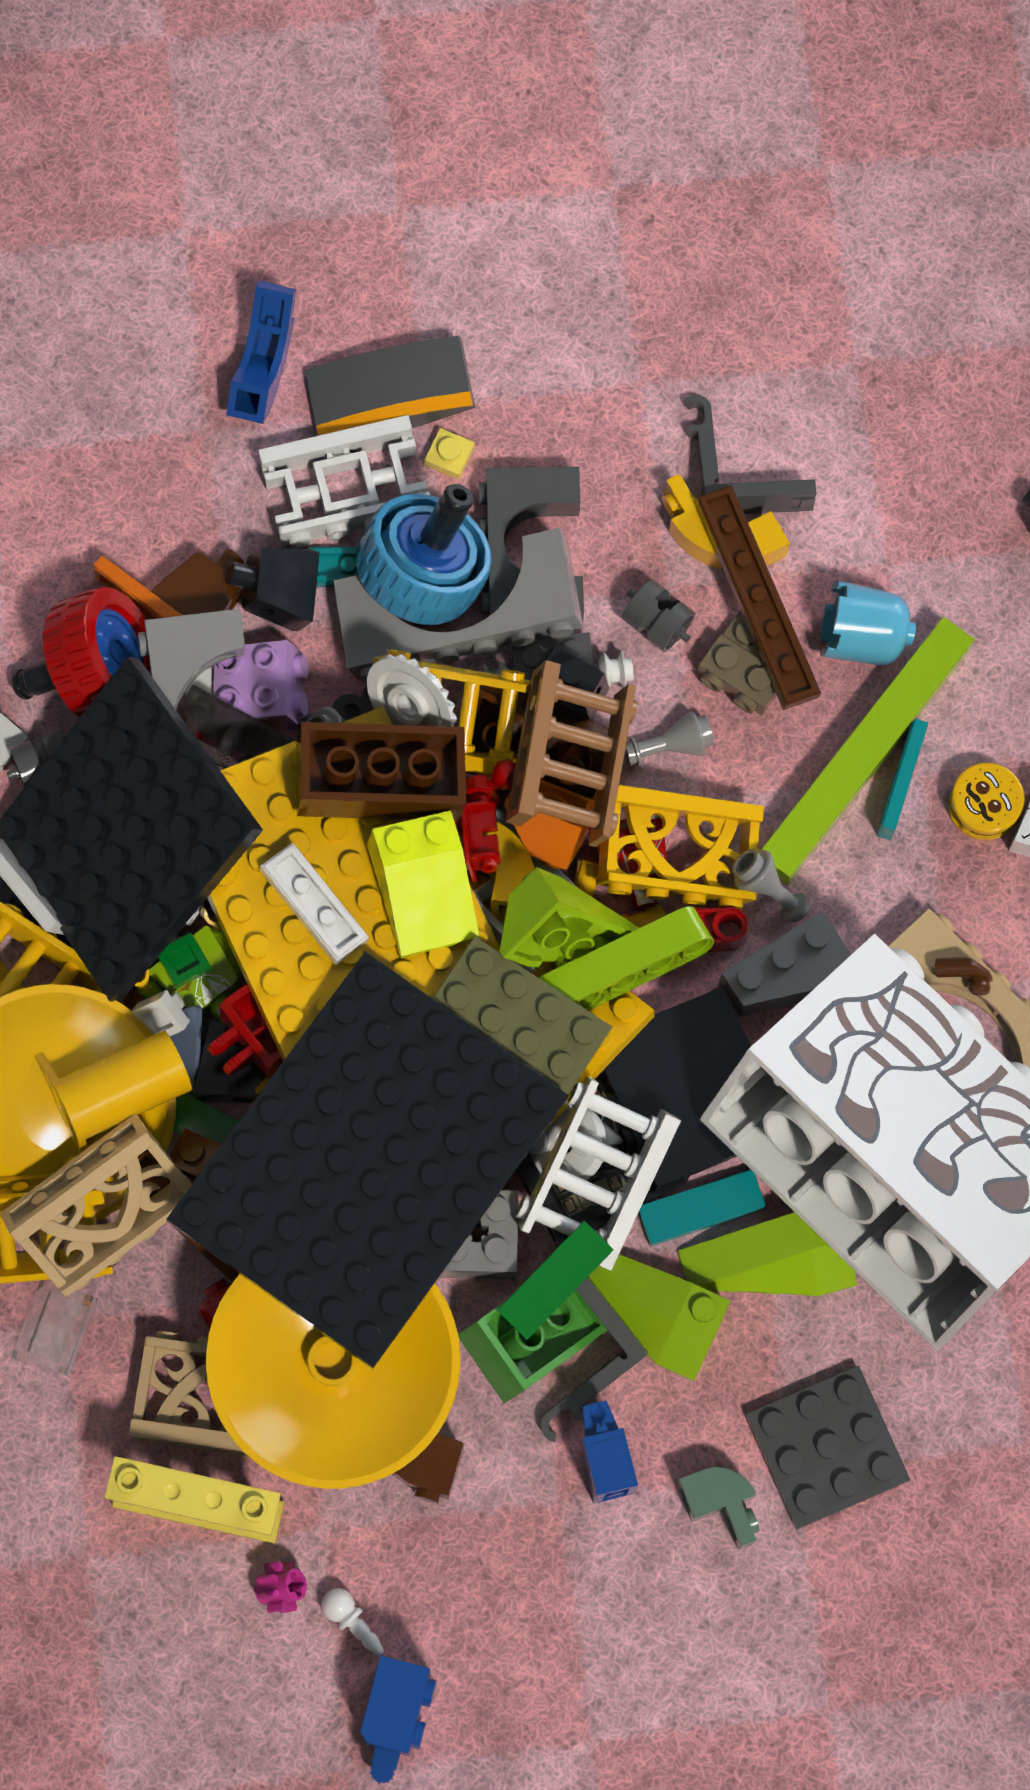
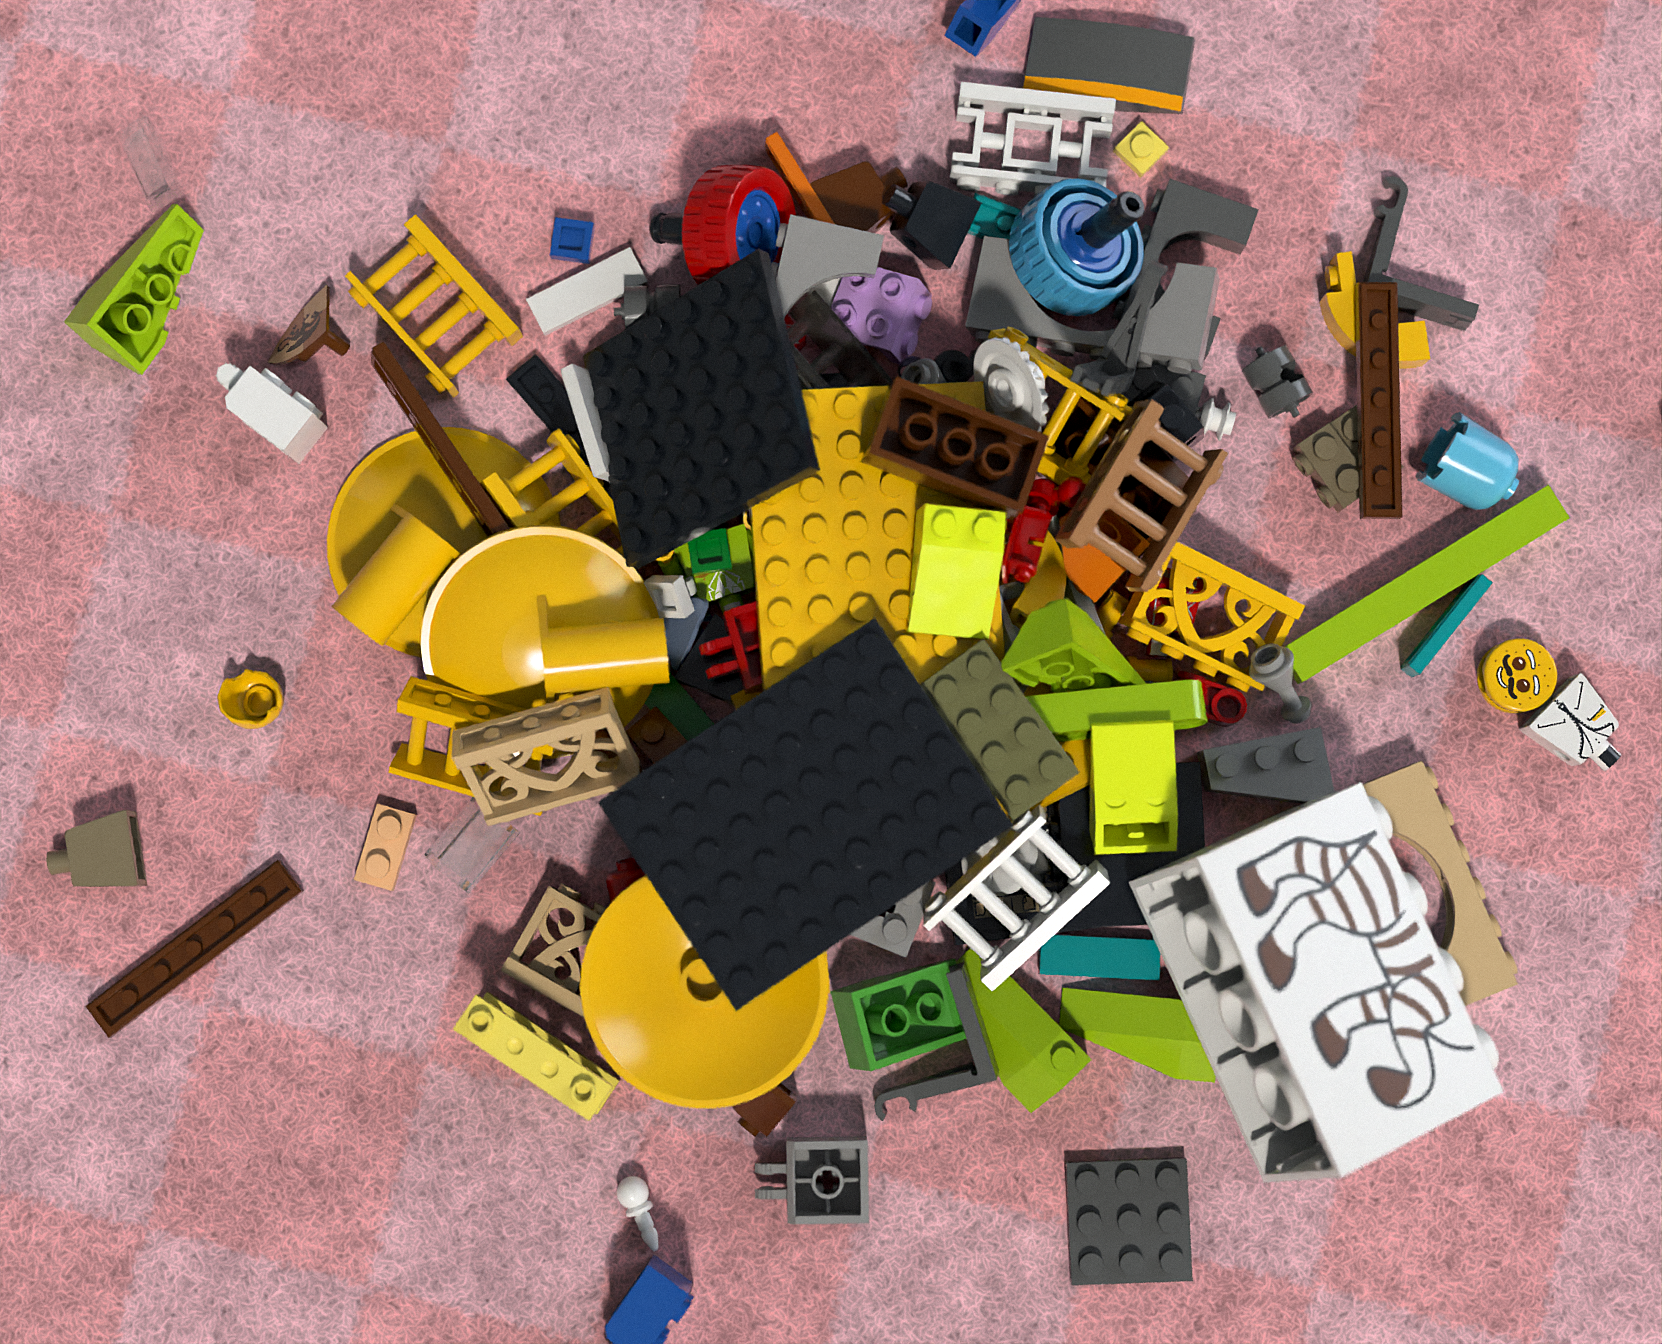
camera: 25 degrees right, 10 degrees up
(280, 1587) = (586, 1157): dark pink gear -> none
(314, 903) = (845, 551): white tile -> none
(502, 634) = (1119, 358): none -> dark grey hinge
(511, 1542) = (808, 1199): none -> light grey hinge
(555, 1280) = (937, 982): green tile -> none
(606, 1455) = (923, 1157): blue hinge -> none
(668, 1025) = (1133, 787): none -> neon yellow slope
(686, 736) = (1258, 507): light grey piece -> none
(725, 1491) = (1014, 1224): sand green brick -> none
(968, 969) = (1434, 833): reddish brown arm -> none

